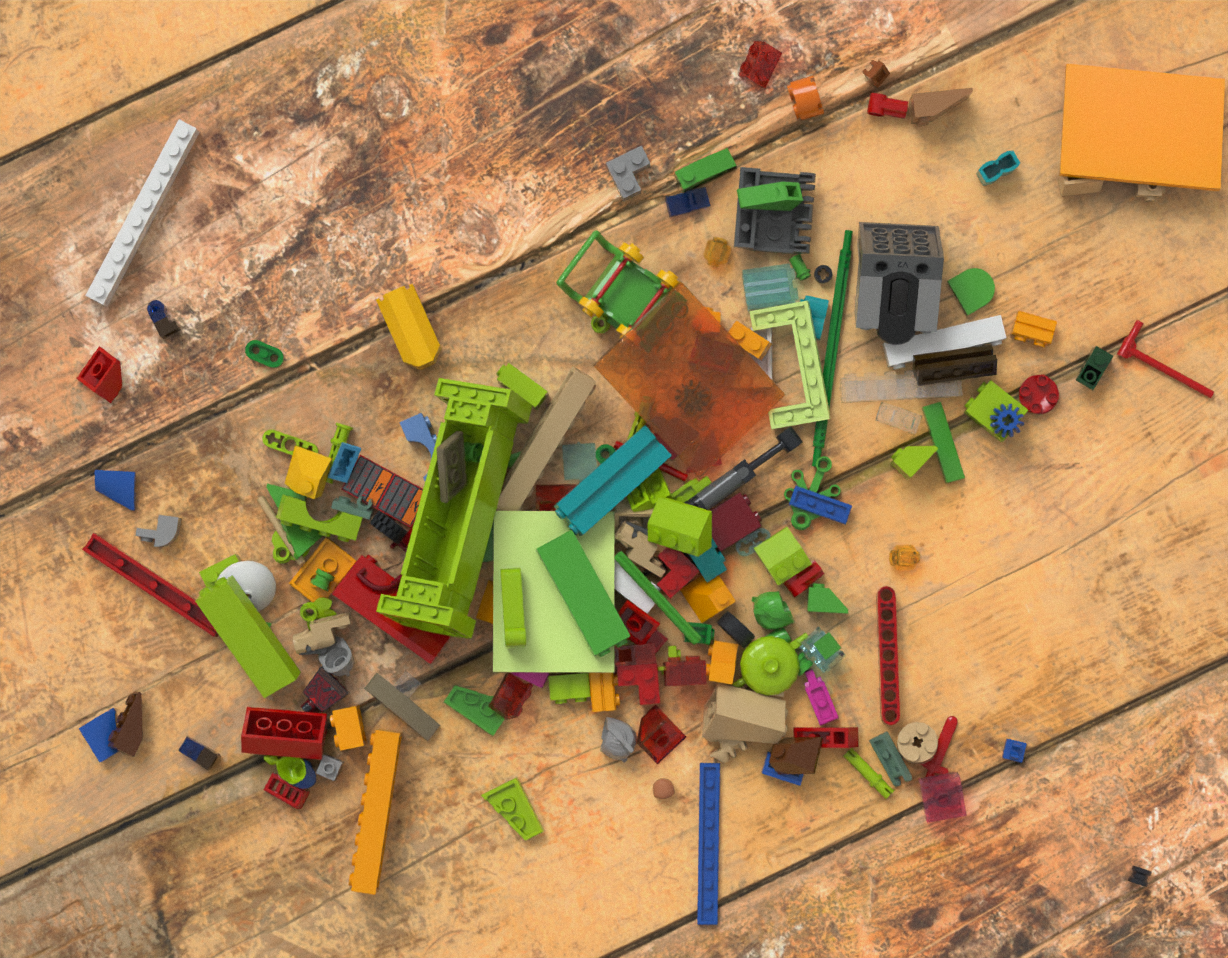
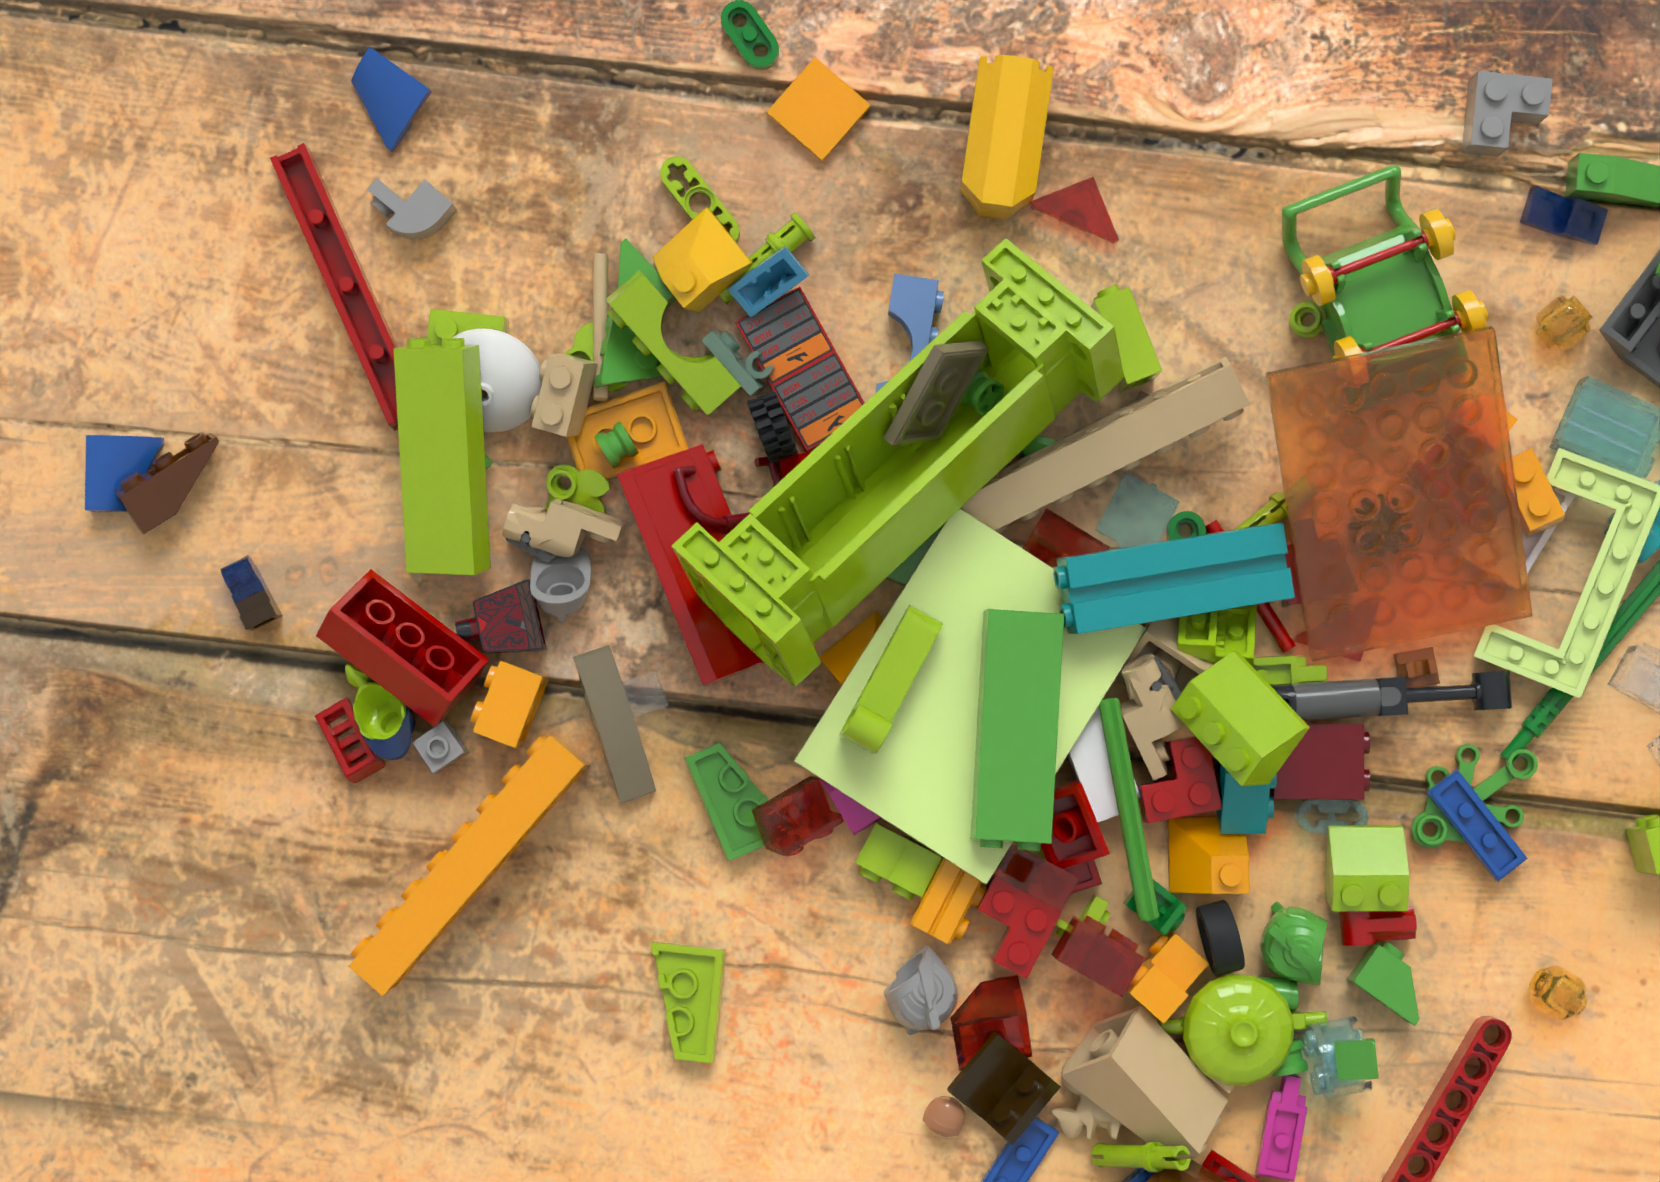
camera: 25 degrees right, 0 degrees up
(284, 572) = (563, 394): none -> tan brick
(317, 368) = (818, 109): none -> light orange tile
(465, 337) = (1080, 208): none -> clear red tile
(680, 758) = (1003, 1087): none -> dark brown bracket
(749, 450) = (1418, 667): none -> dark orange tile
(764, 747) = (1151, 1156): none -> lime pin

